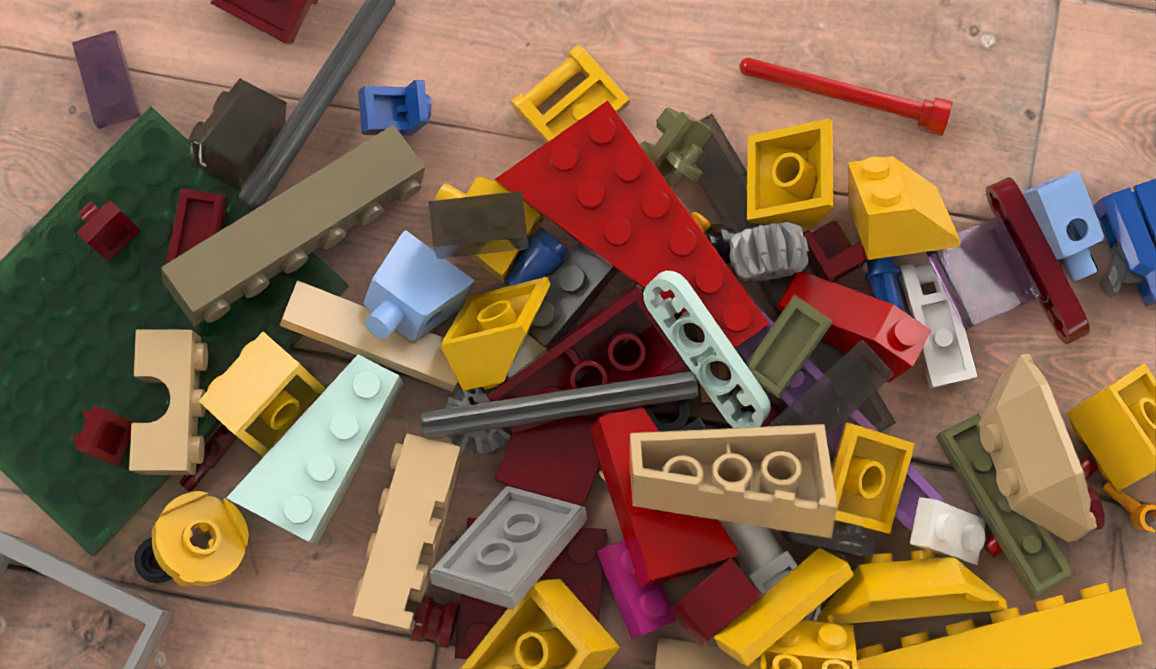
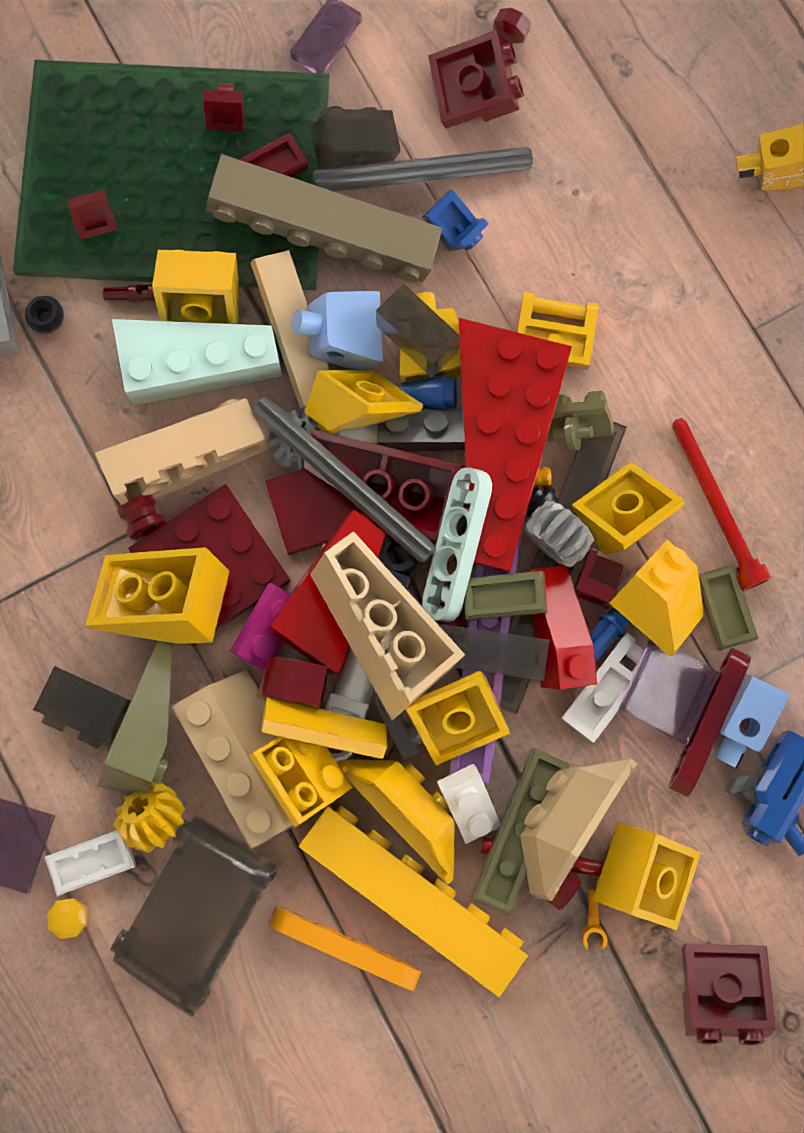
camera: 50 degrees right, 0 degrees up
(173, 441) = (124, 257): tan arch -> none
(188, 563) = (55, 336): yellow plate -> none
(509, 547) = (221, 519): light grey tile -> none
(946, 162) = (726, 608): none -> olive tile

